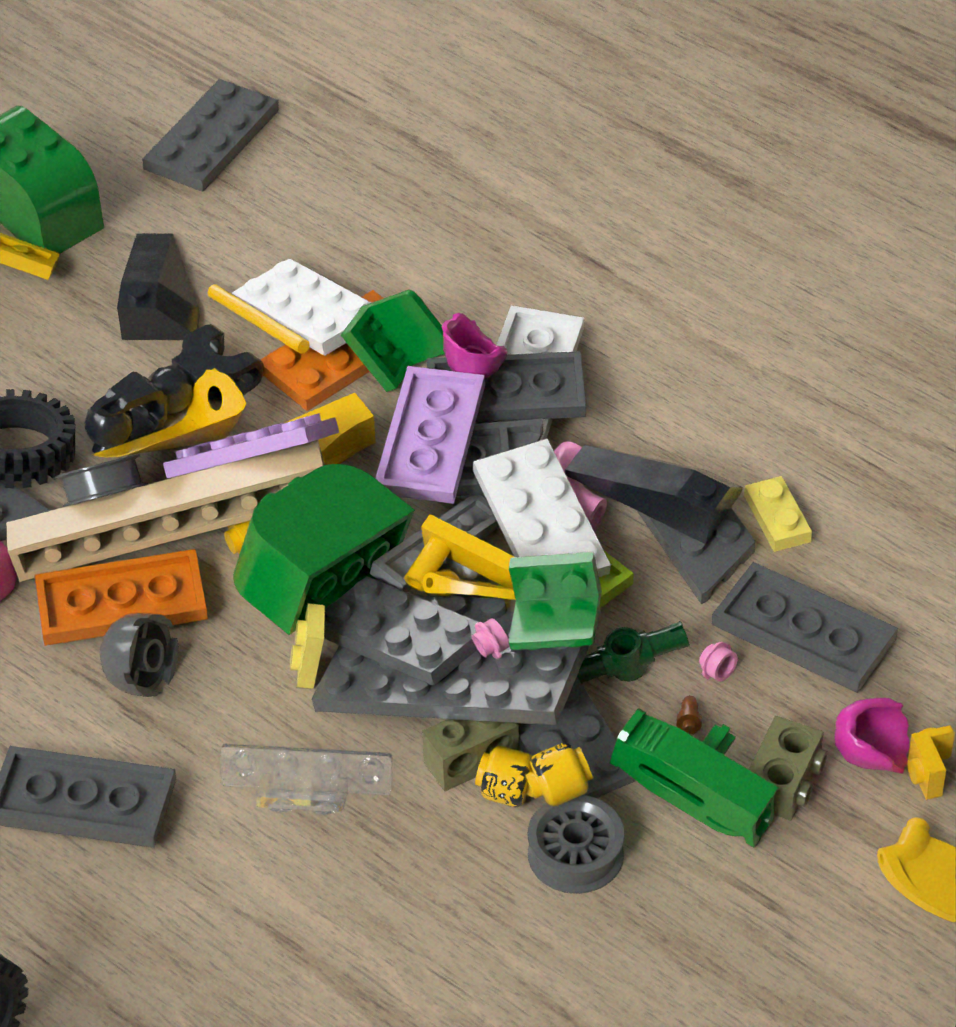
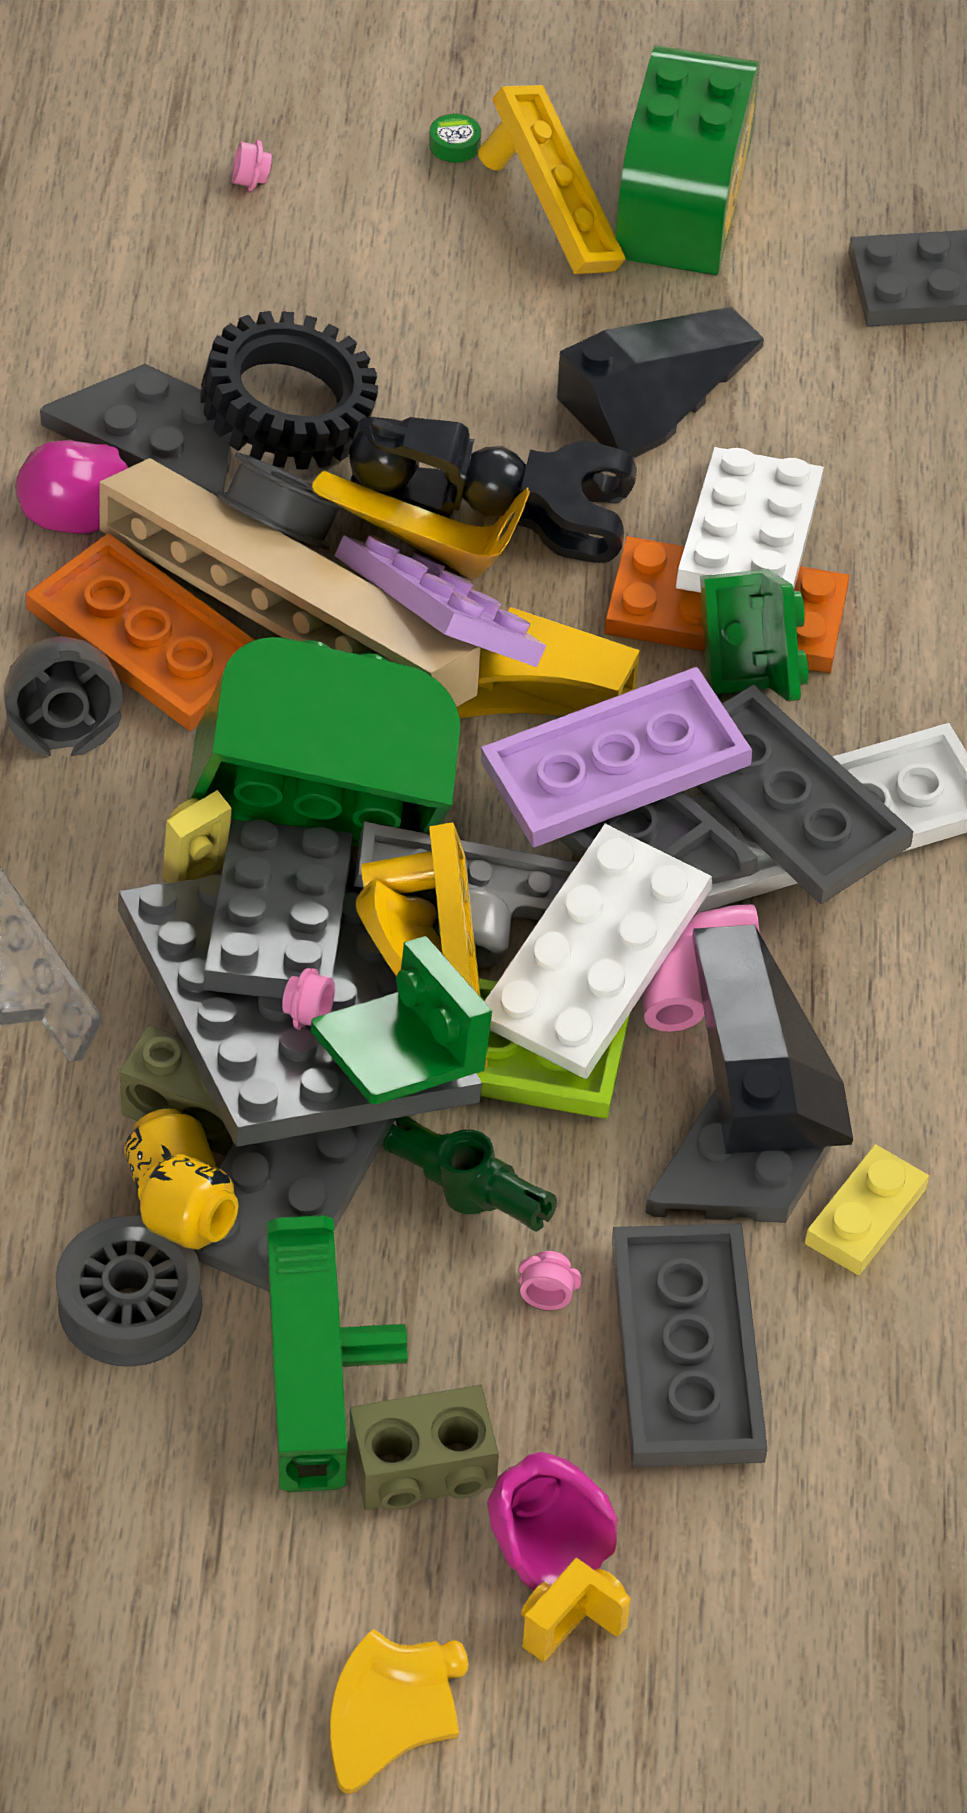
camera: 50 degrees right, 5 degrees up
(258, 319) = (689, 494): yellow bar -> none
(469, 348) = (780, 706): dark pink hair -> none
(689, 718) = (430, 1301): dark orange piece -> none

